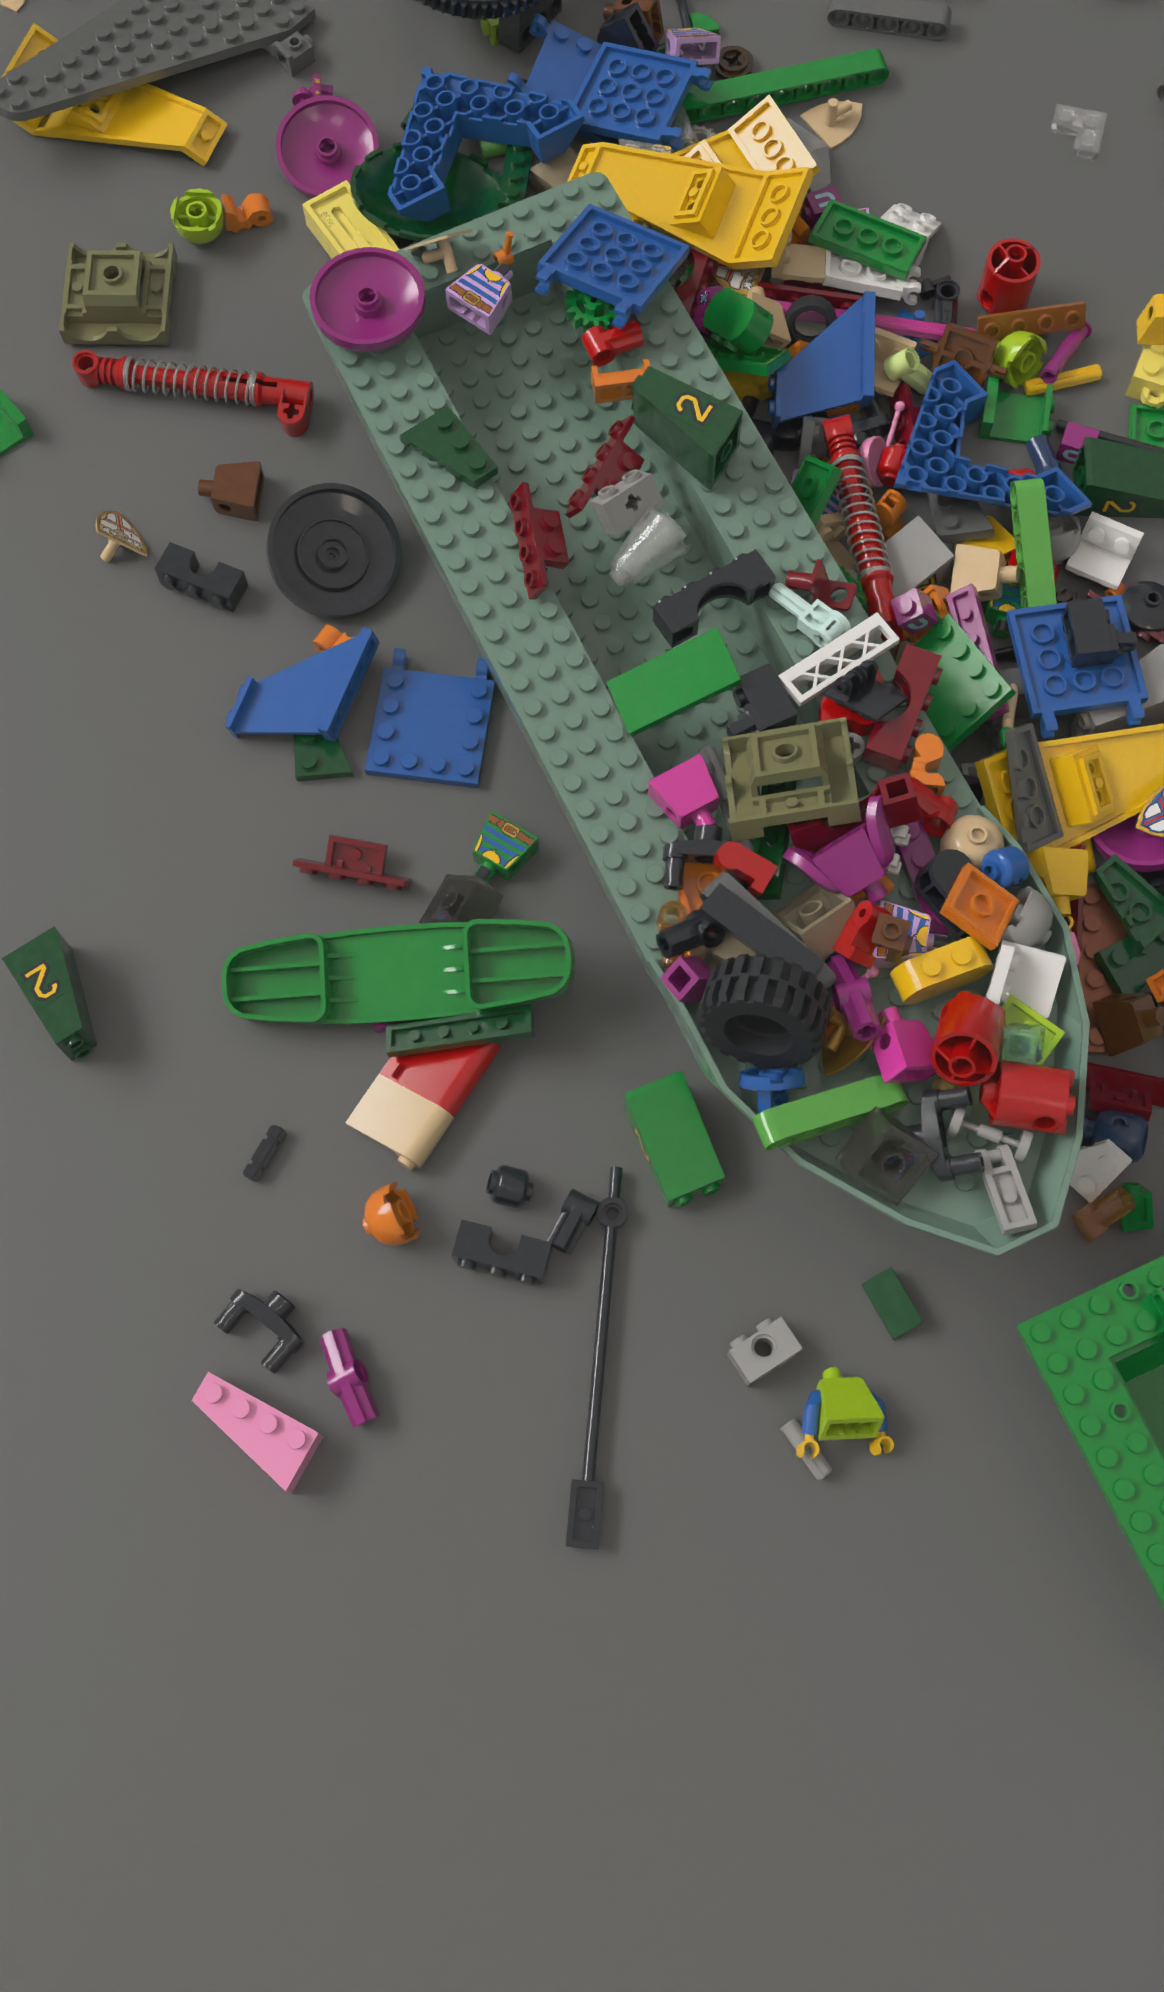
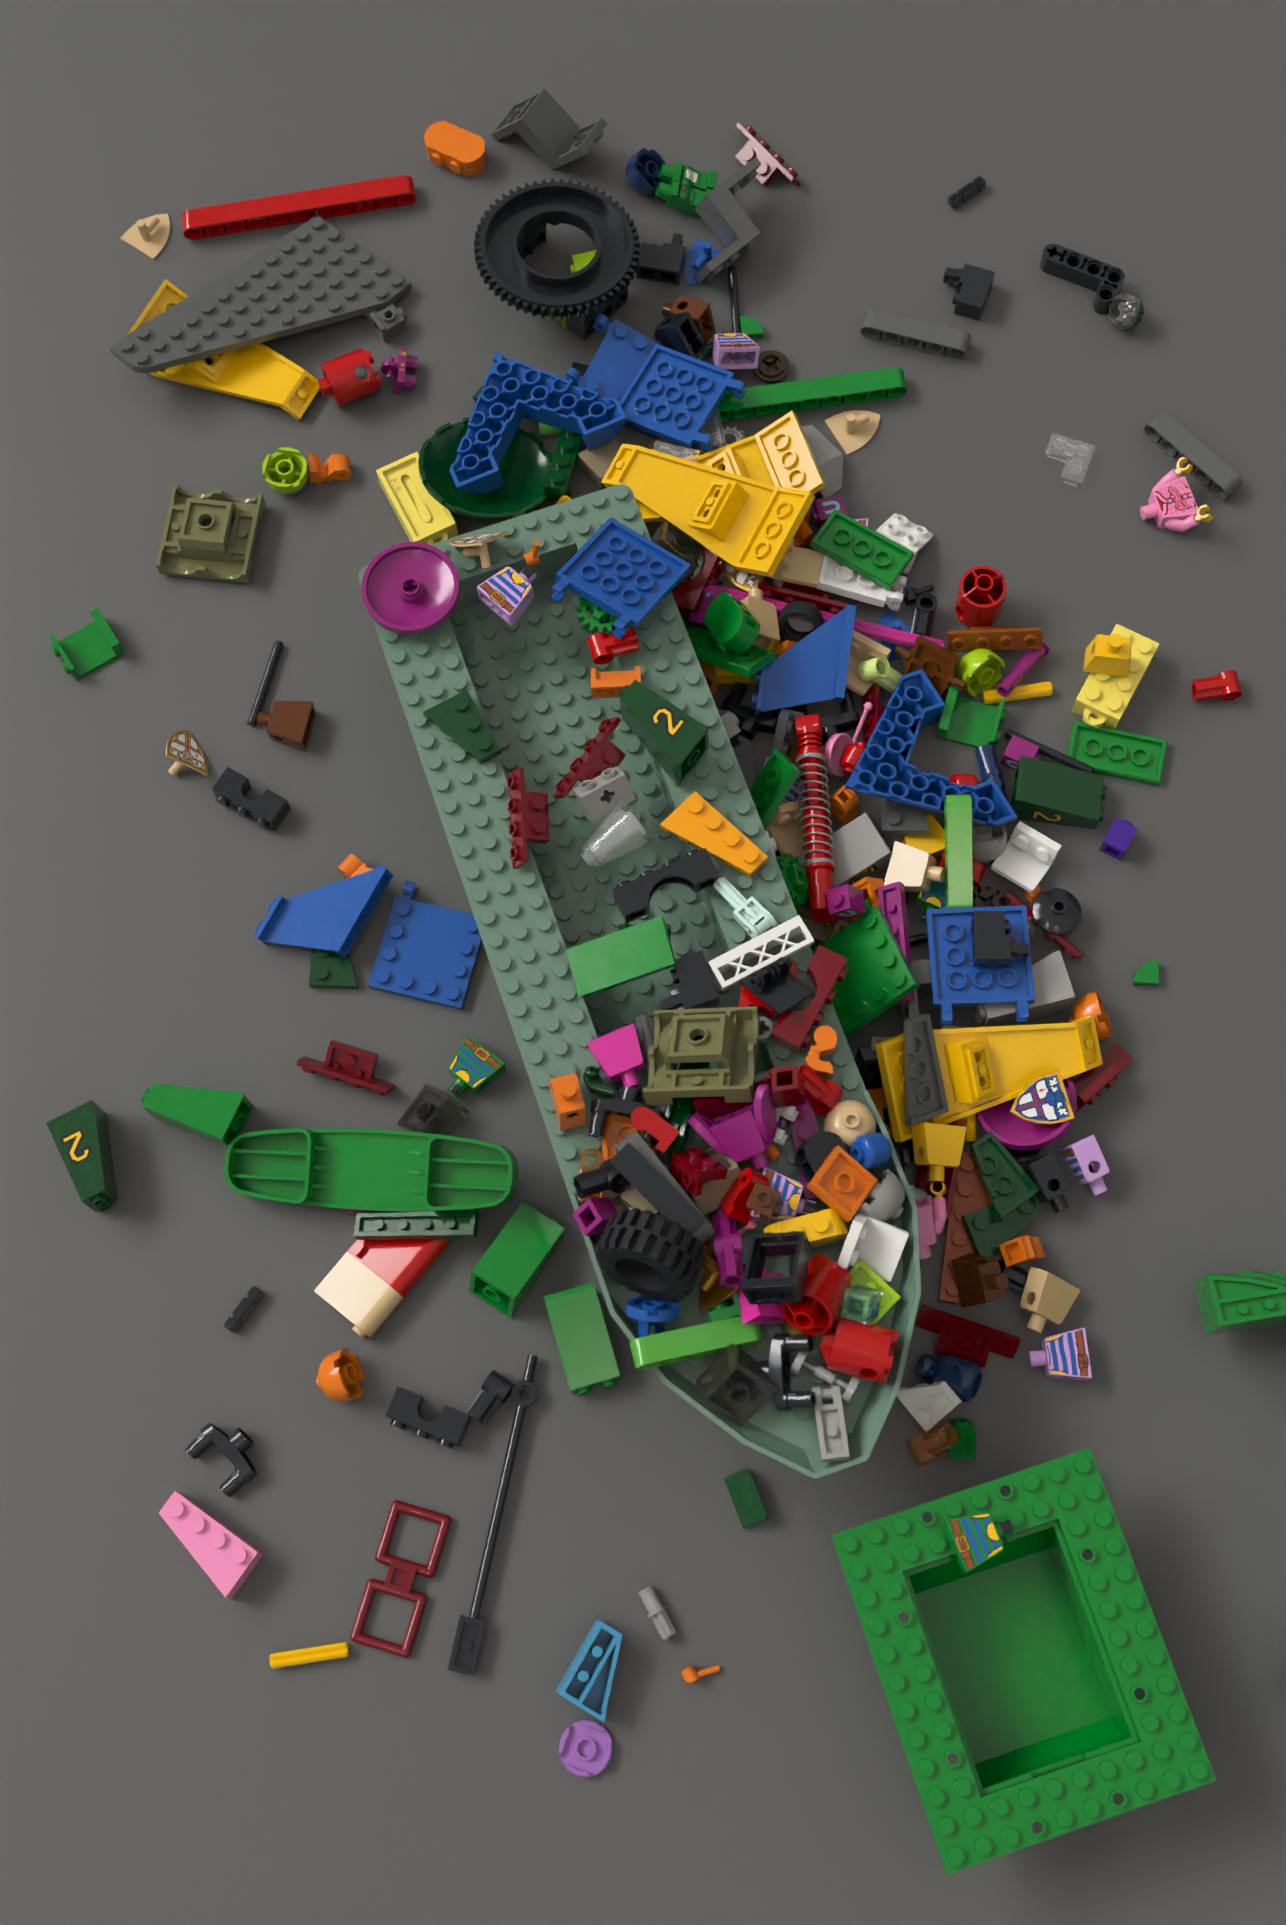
camera: 10 degrees right, 0 degrees up
(183, 929) = (202, 1112): none -> green slope
(201, 451) = (265, 683): none -> black bar
(217, 384) = (314, 633): red piece -> none
(249, 113) = (342, 381): none -> red cylinder
(323, 143) = (402, 413): magenta dish -> none
(333, 550) = (364, 789): black container -> none
(348, 1377) = (289, 1507): magenta piece -> none
(394, 1549) = (309, 1655): none -> yellow axle
(493, 1446) = (400, 1579): none -> dark red bar
(509, 1186) = (441, 1362): black head -> none
(581, 1059) = (516, 1259): none -> green slope
(631, 845) = (566, 1100): none -> orange torso
(661, 829) = (595, 1084): none -> dark green arm
(741, 1525) = (592, 1670): none -> dark azure wedge
(743, 1620) = (585, 1748): none -> medium lavender tile
(746, 528) = (706, 828): none -> light orange wing
(750, 1364) = (649, 1525): light grey brick -> none
(800, 909) = (694, 1167): none -> dark red bracket
(821, 587) = (758, 884): dark red bracket -> none
(844, 1410) = (690, 1585): lime torso -> none
(857, 1072) = (724, 1311): none -> green bracket
(857, 1517) = (691, 1675): none -> orange hand
(927, 1030) = (776, 1289): none -> black window
(1008, 718) = (913, 1005): tan piece -> none

